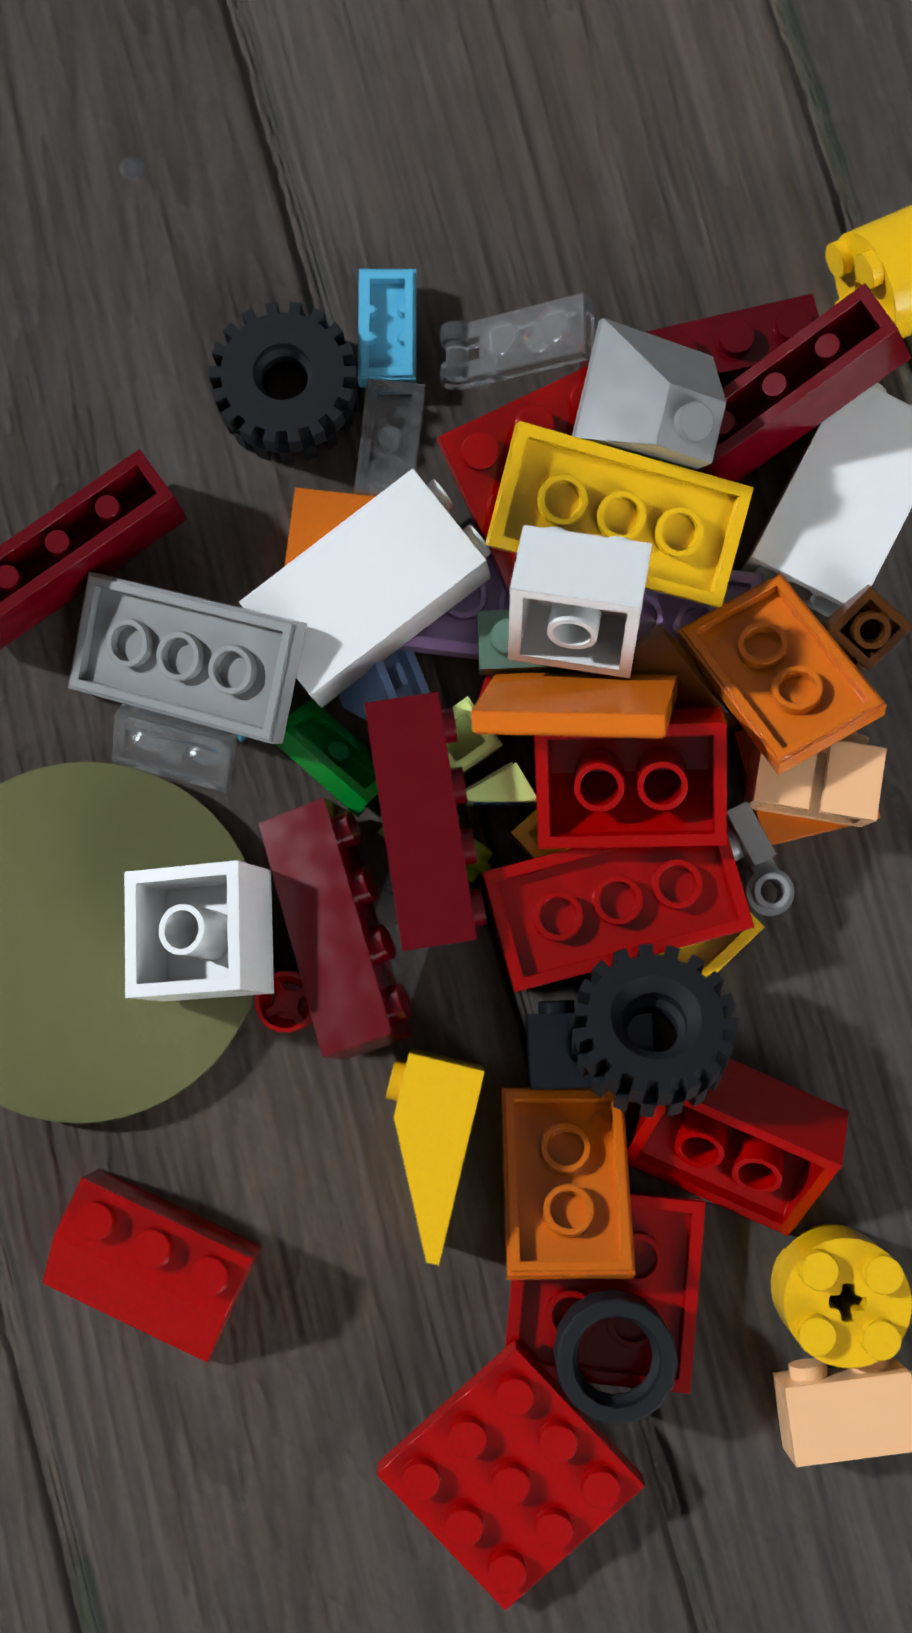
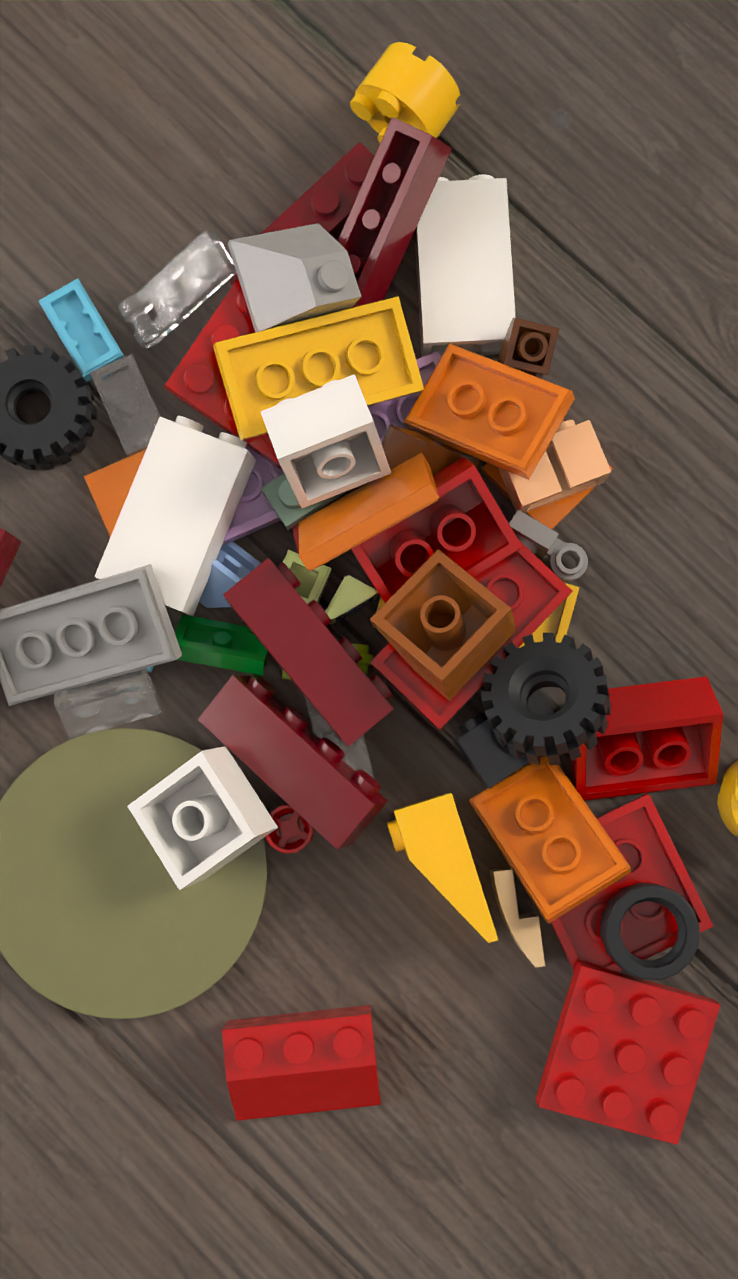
camera: 30 degrees left, 0 degrees up
(477, 1262) = (522, 927): none -> tan slope
(589, 880) = (445, 624): none -> dark orange slope

